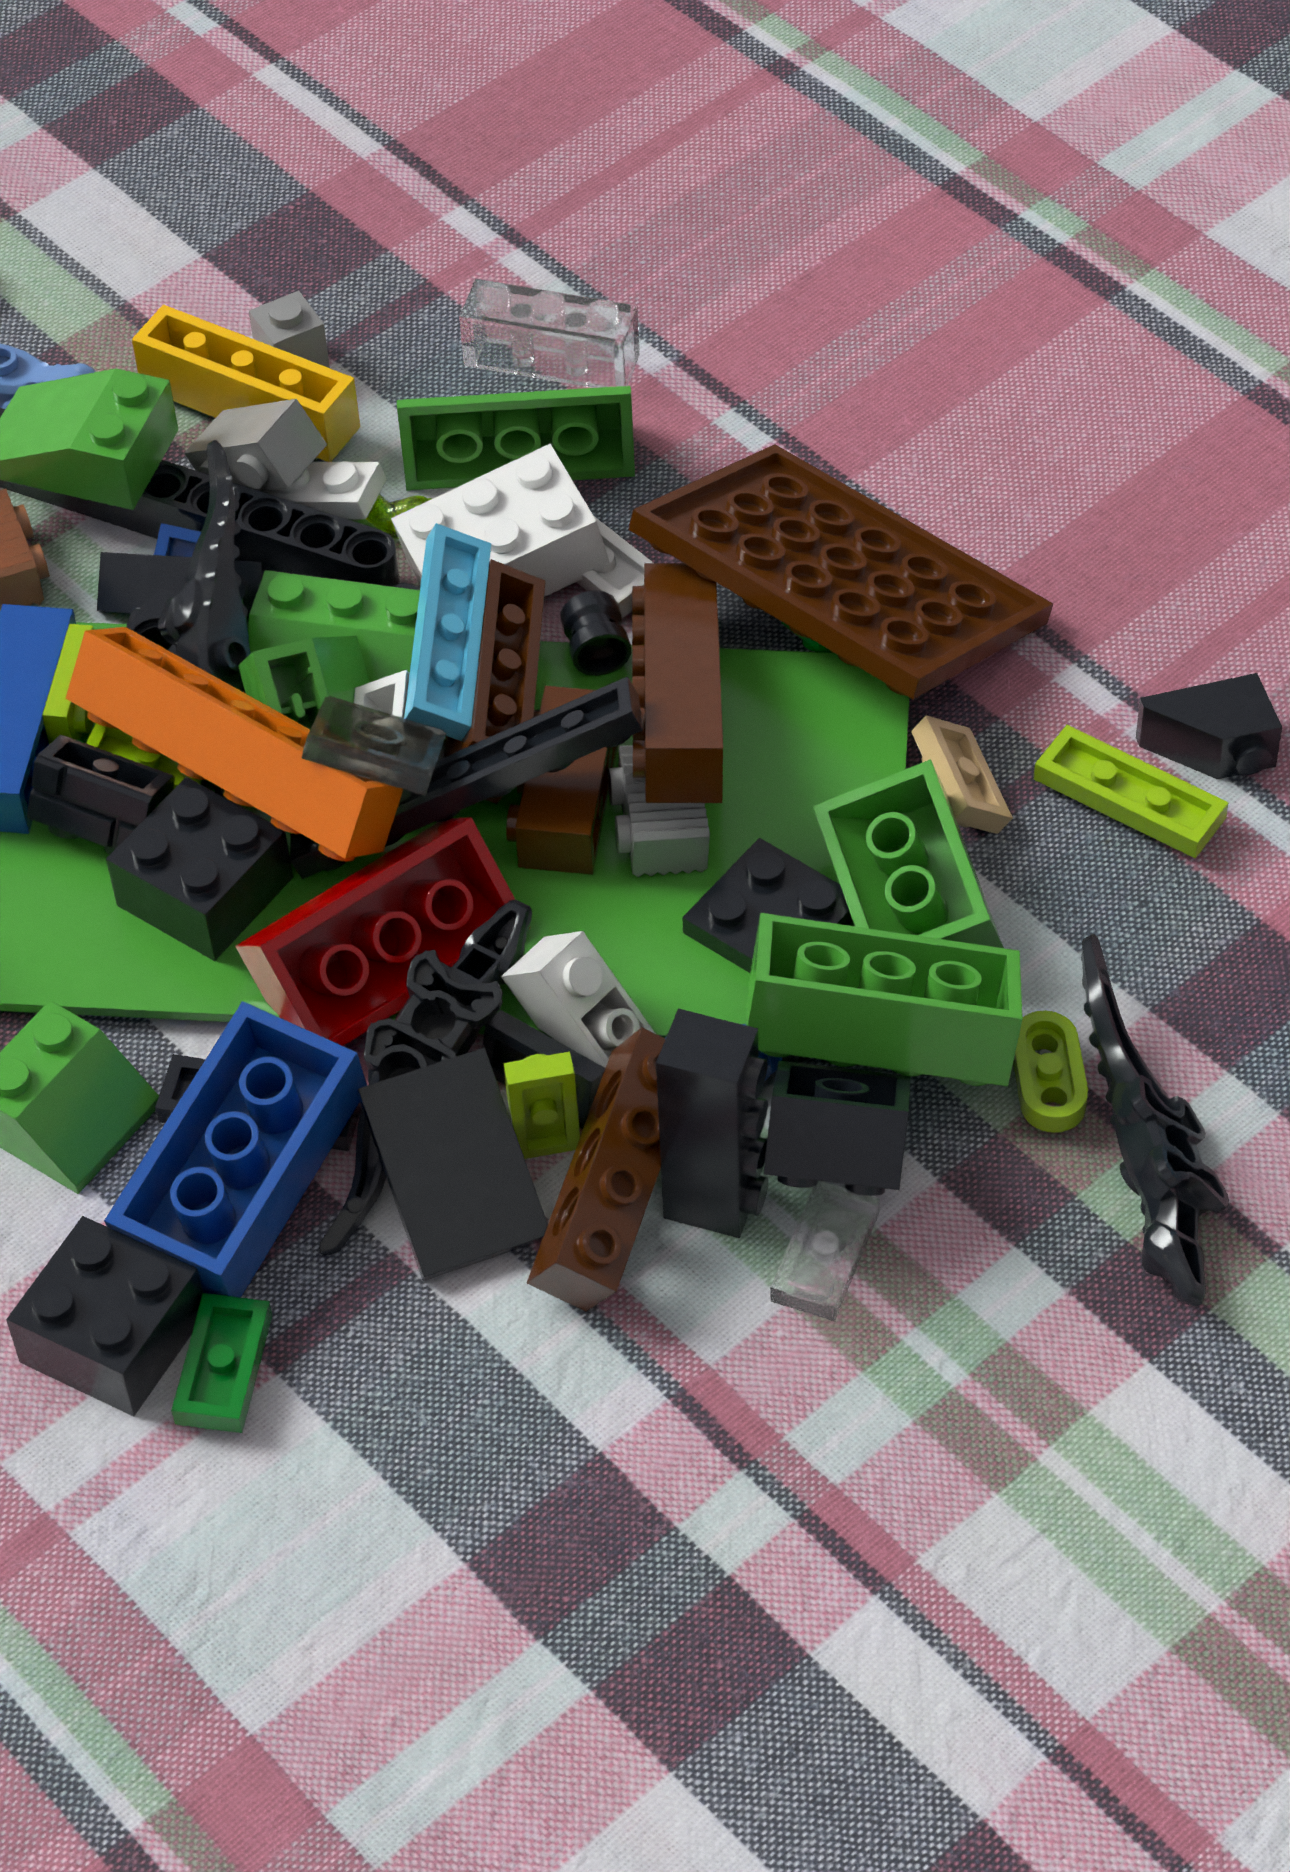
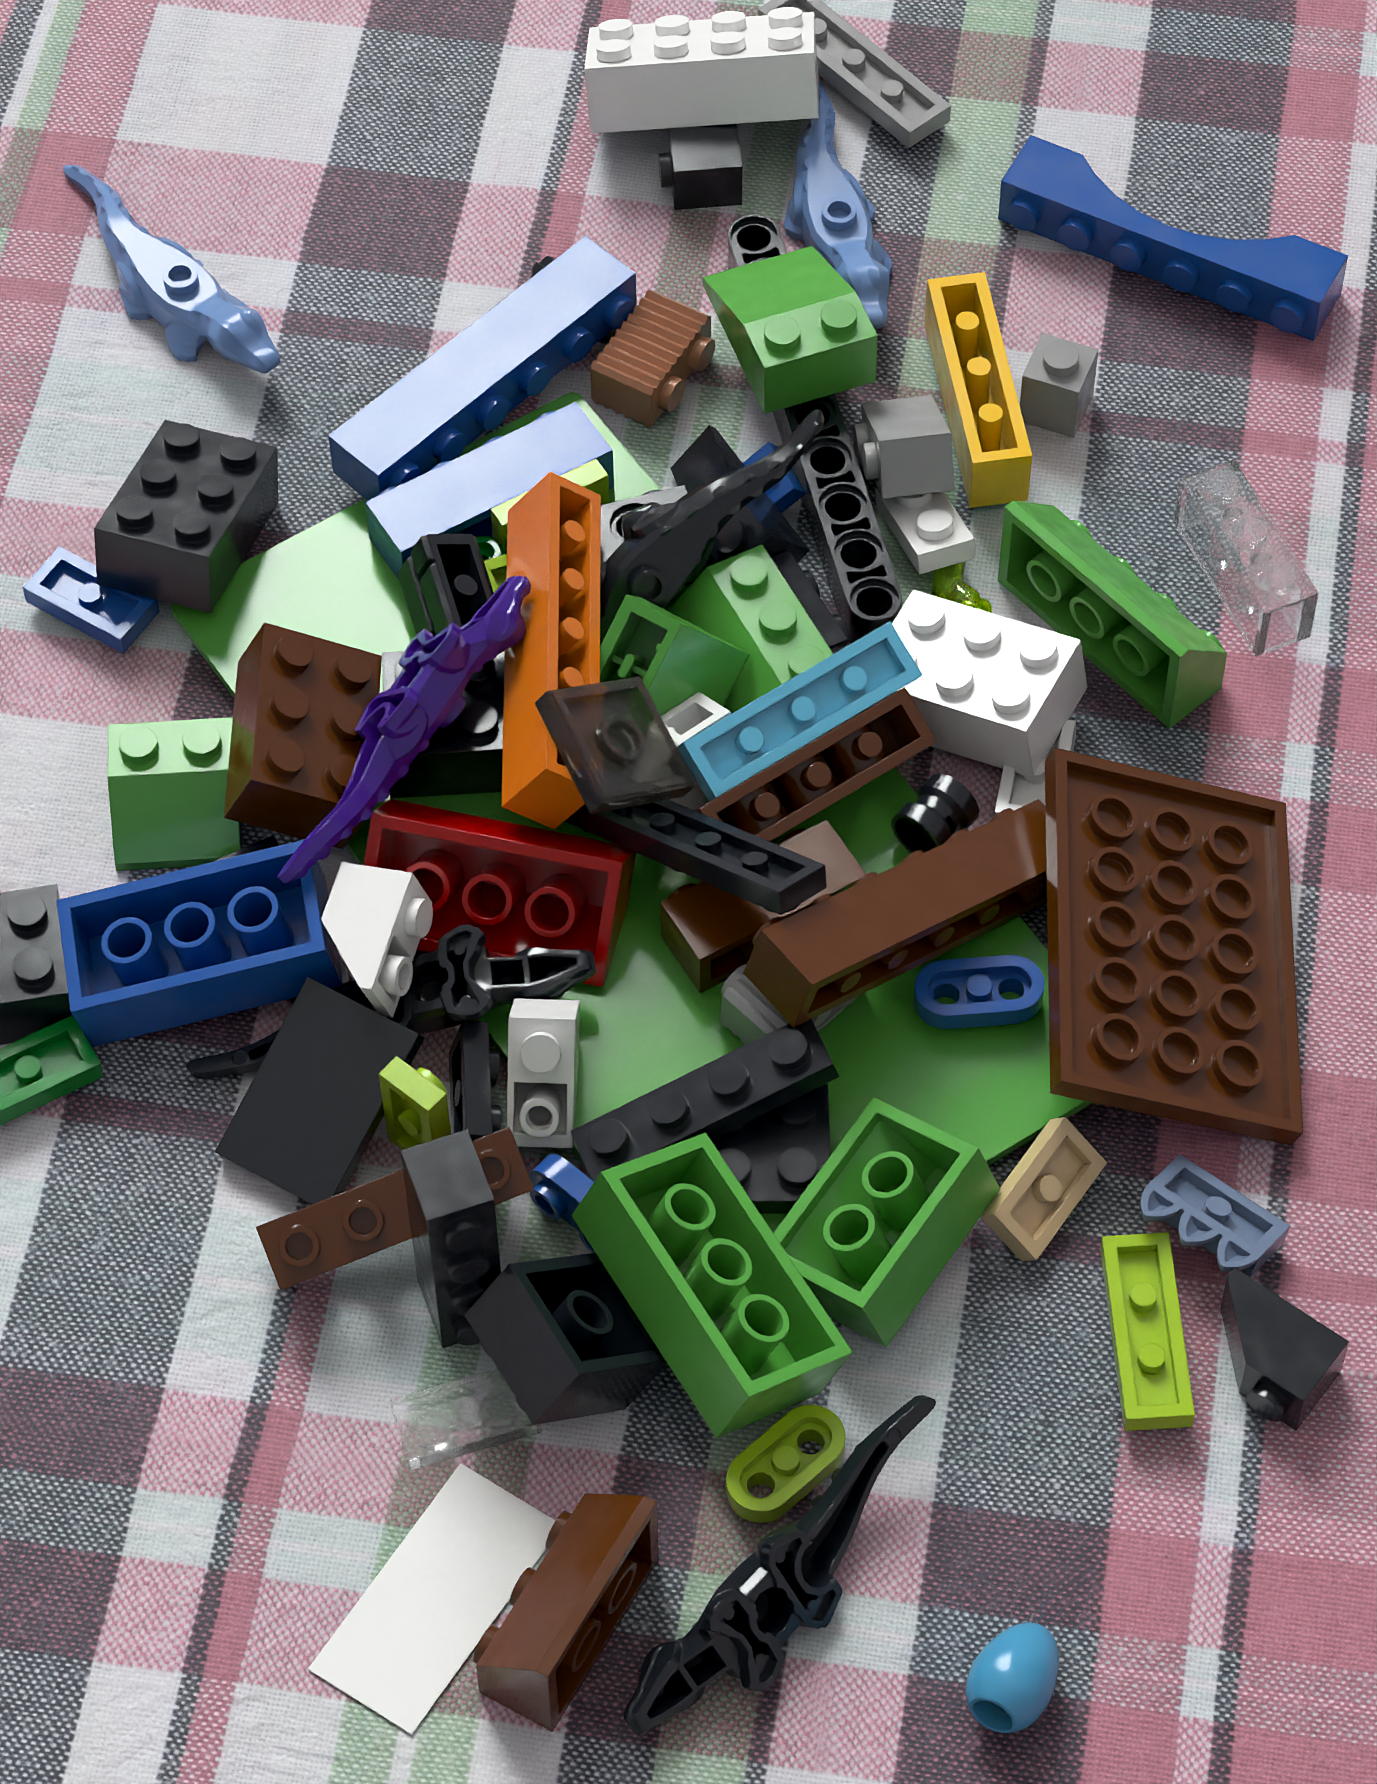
camera: 50 degrees right, 5 degrees up
(123, 961) = (296, 729): none -> reddish brown brick
(134, 240) = (1271, 280): none -> blue arch
(202, 857) = (409, 713): none -> dark purple animal
(358, 1009) = (377, 927): none -> white slope
(715, 908) = (710, 1098): none -> black plate
(761, 714) = (977, 989): none -> blue plate
(959, 1377) = (434, 1599): none -> white sticker
(1064, 1271) = (569, 1606): none -> reddish brown slope
(1074, 693) = (1213, 1216): none -> sand blue plate

